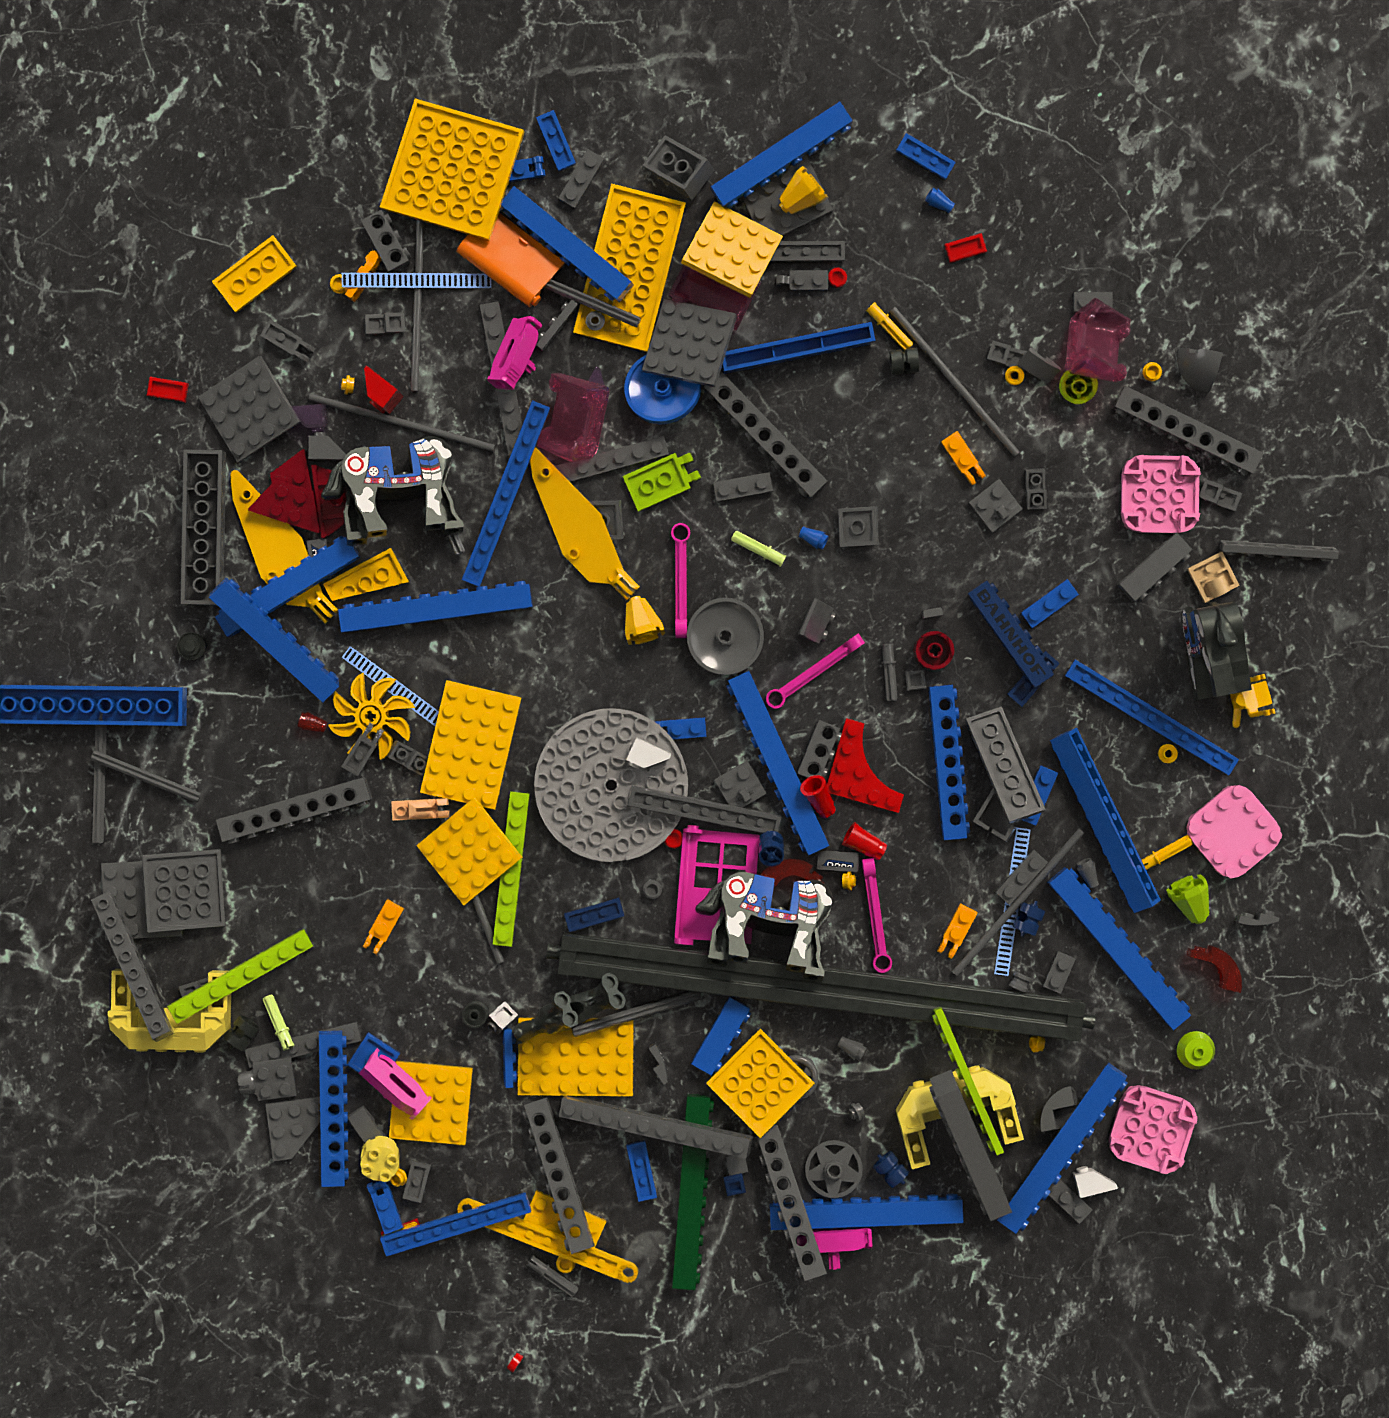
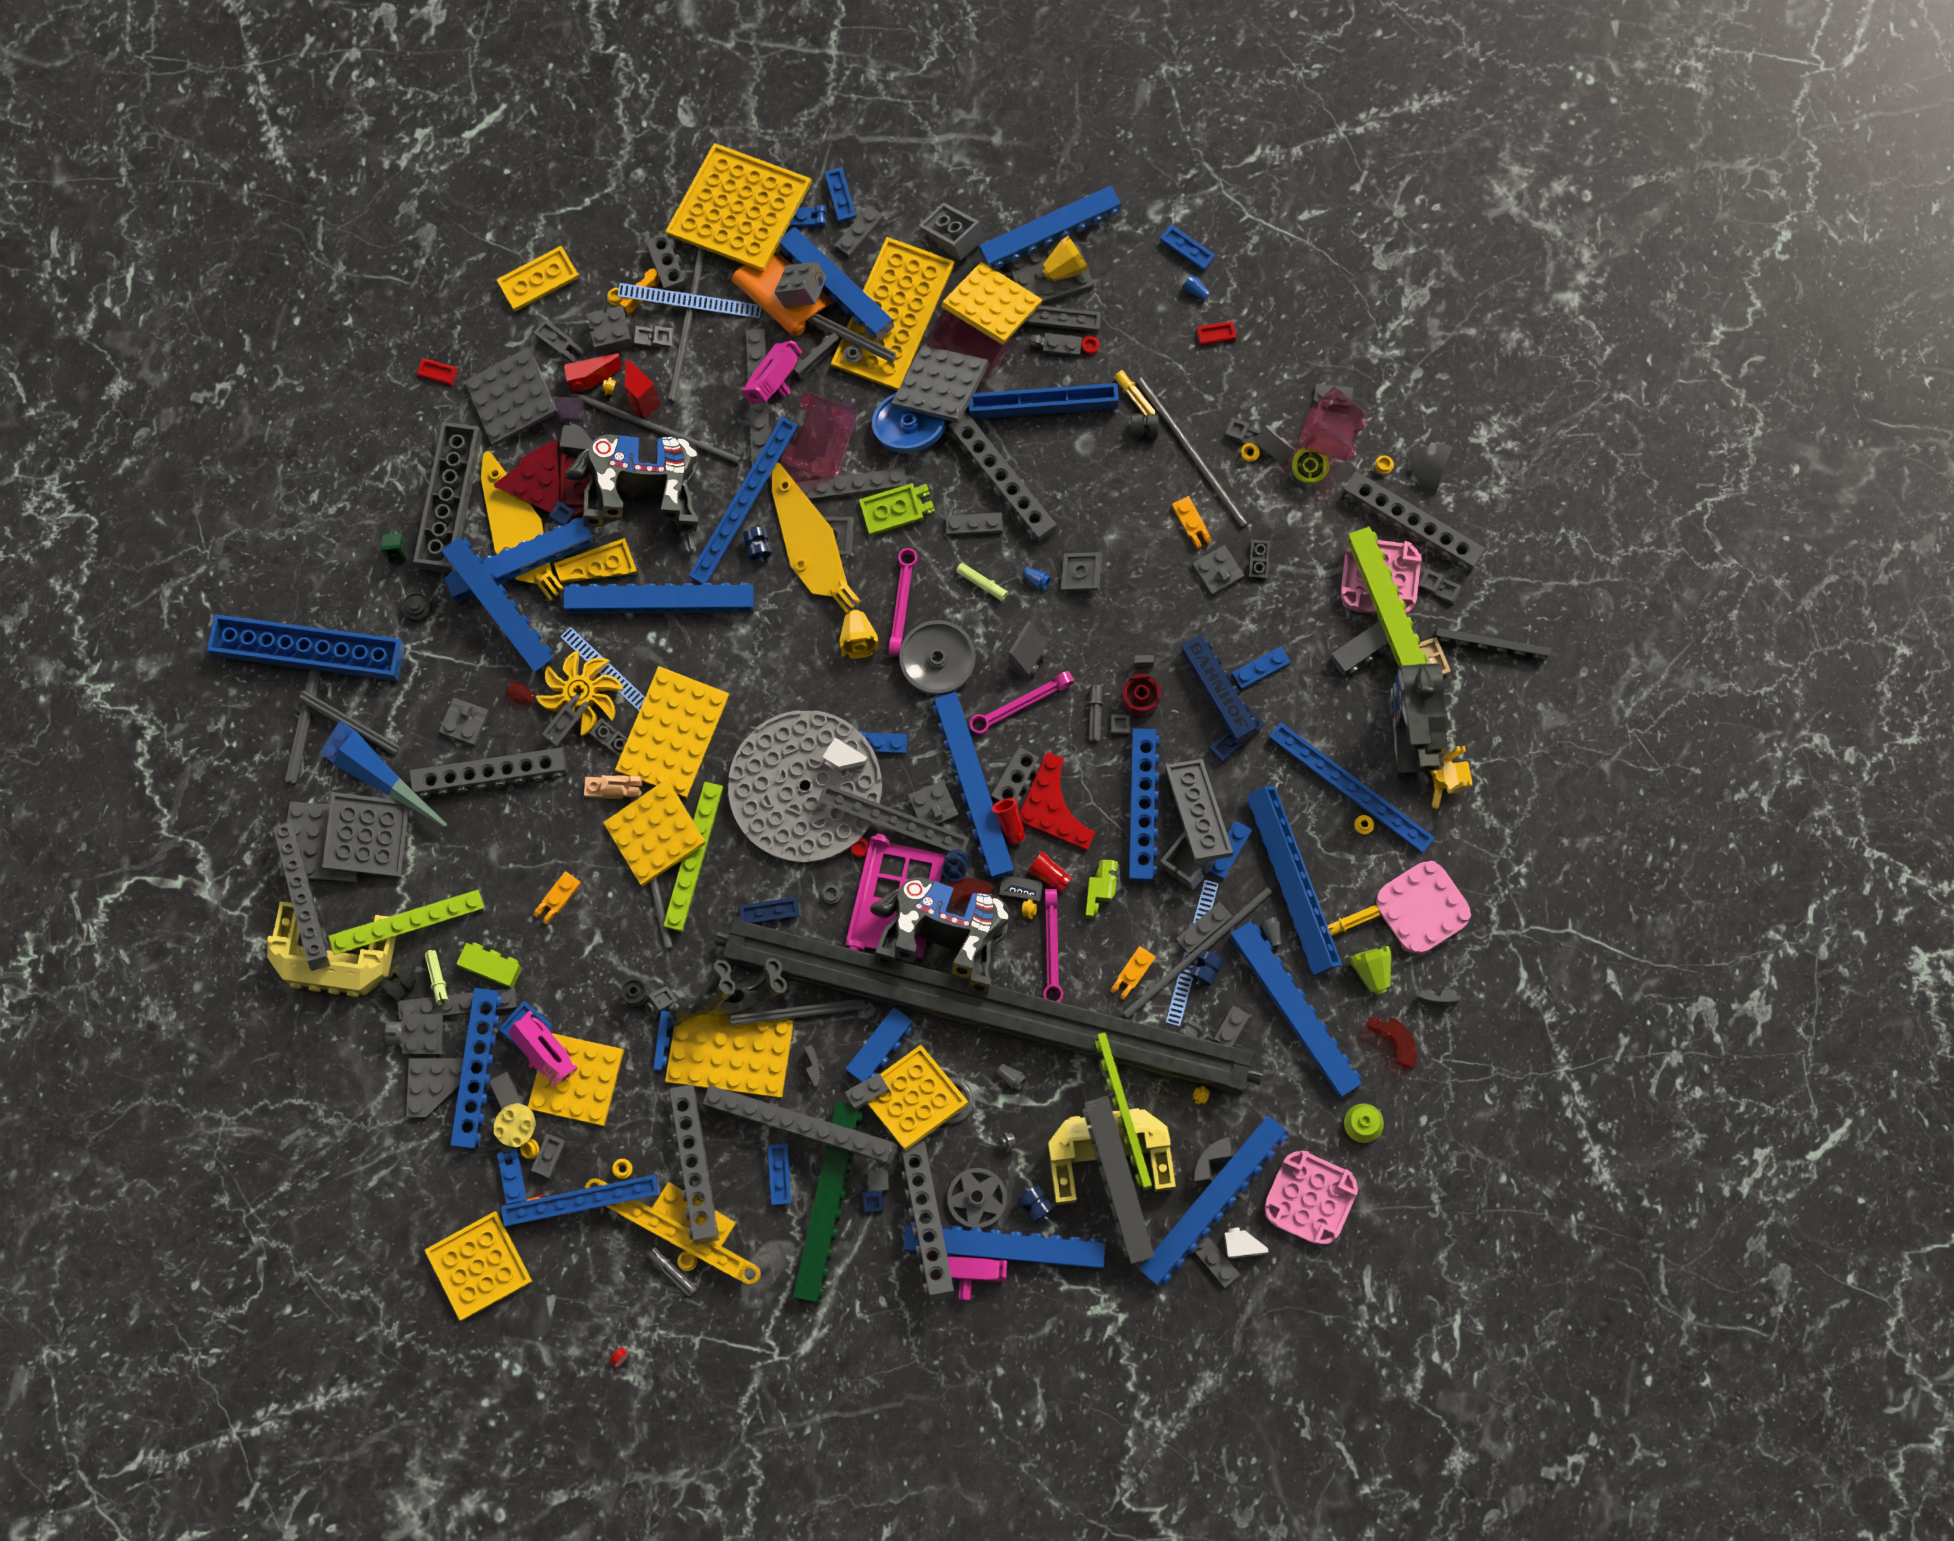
camera: 10 degrees right, 15 degrees down
(157, 585) = (394, 546): none -> dark green slope
(160, 812) = (356, 757): none -> blue plate
(260, 758) = (464, 721): none -> dark grey hinge
(322, 532) = (561, 514): none -> dark blue tile
(325, 373) = (590, 372): none -> red slope
(328, 1003) = (489, 965): none -> lime brick
(339, 324) = (609, 330): none -> dark grey piece
(367, 1294) = (478, 1266): none -> yellow plate
(487, 1189) = (622, 1162): none -> yellow plate
(526, 537) = (756, 540): none -> dark blue wheel
(531, 255) = (800, 284): none -> dark grey brick
(715, 1084) = (867, 1091): none -> dark grey plate
(919, 850) = (1103, 887): none -> lime plate
(1170, 524) = (1385, 597): none -> lime brick

